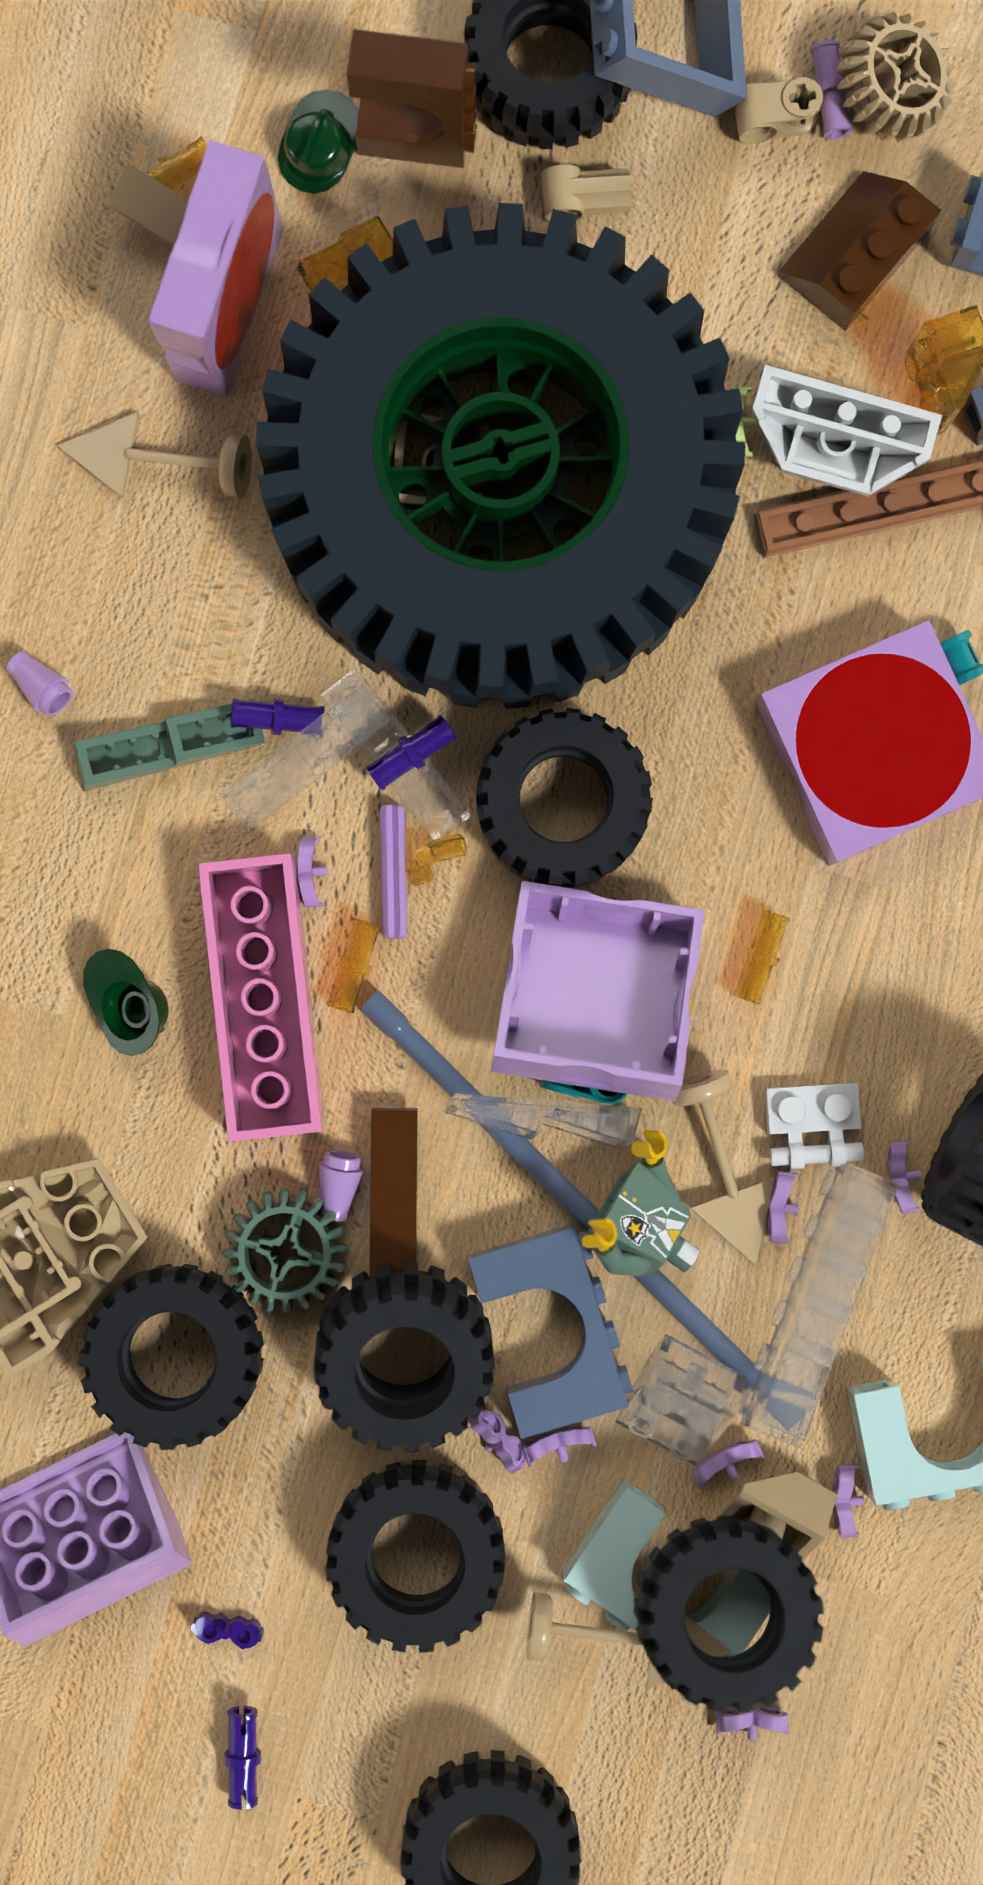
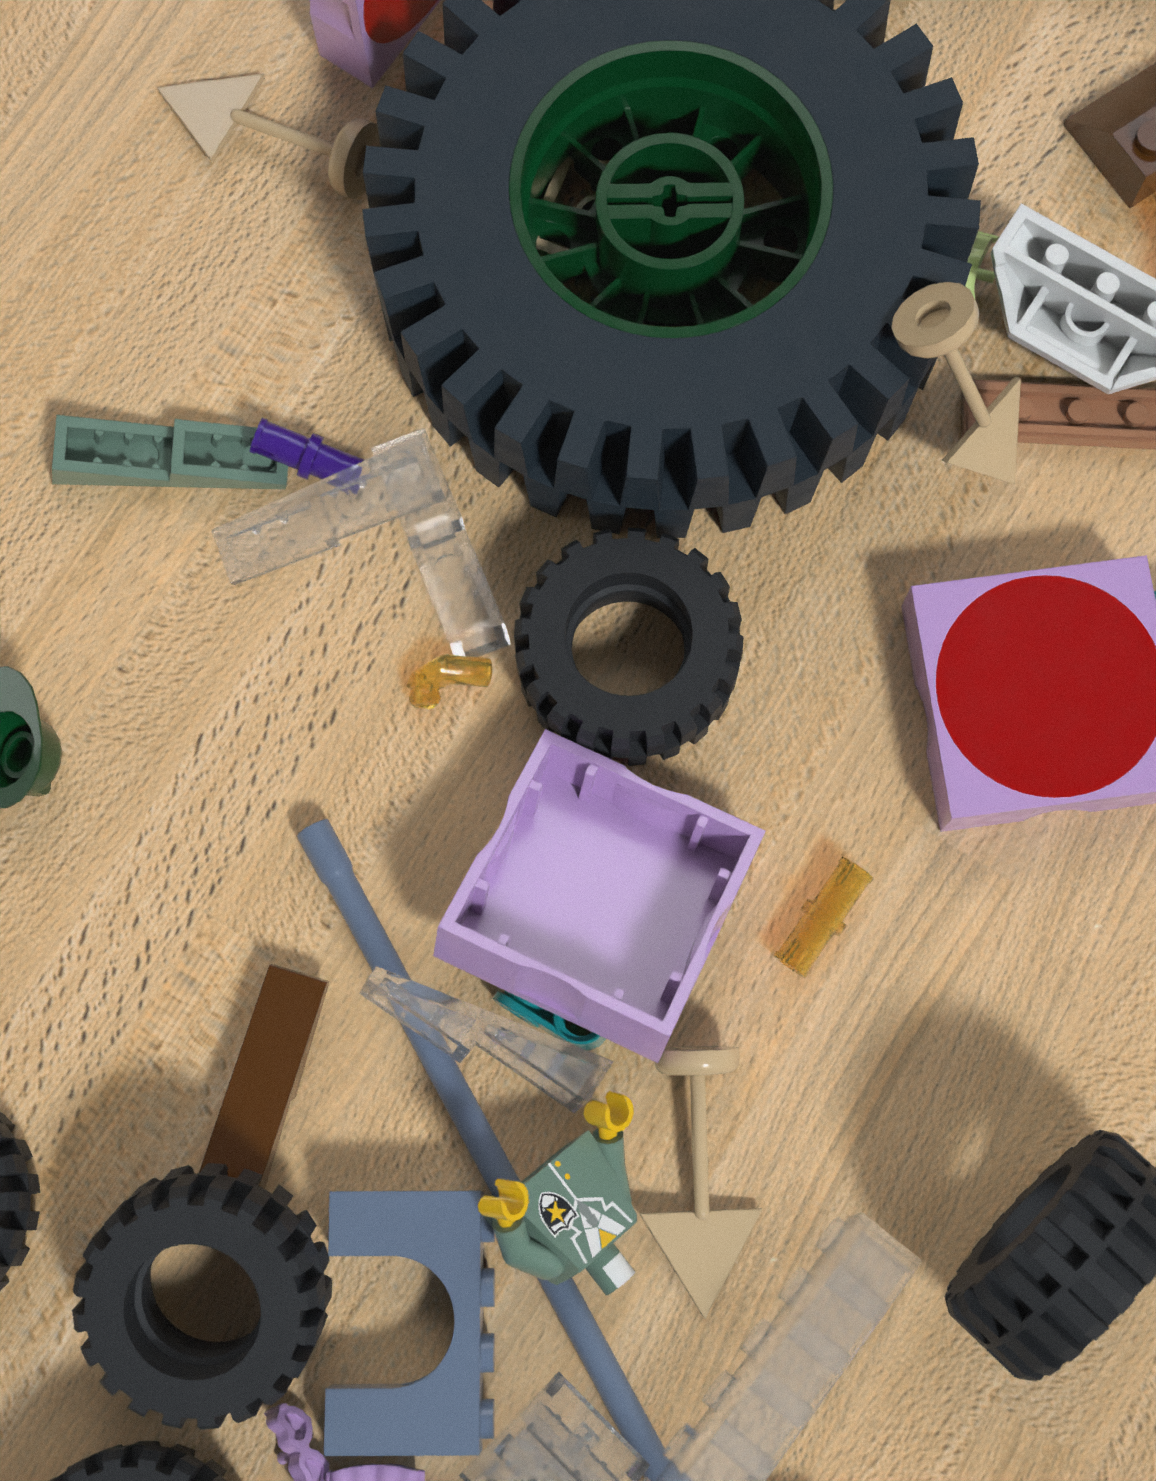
camera: 20 degrees right, 10 degrees down
(42, 686) = (42, 344): lavender cone -> none
(261, 997) = (177, 785): bright pink brick -> none
(306, 871) = (287, 650): lavender piece -> none
(307, 1256) = (59, 1087): sand green gear -> none
(338, 1182) = (198, 1048): lavender cone -> none
(353, 965) = (306, 780): clear yellow pin -> none
(393, 871) = (392, 680): lavender axle -> none
(411, 752) = (457, 540): dark purple pin -> none
(733, 501) = (937, 324): none -> tan piece
(777, 1207) = (756, 1248): lavender piece -> none
(813, 1110) = (836, 1134): white plate -> none
(898, 1174) = (925, 1249): lavender piece -> none

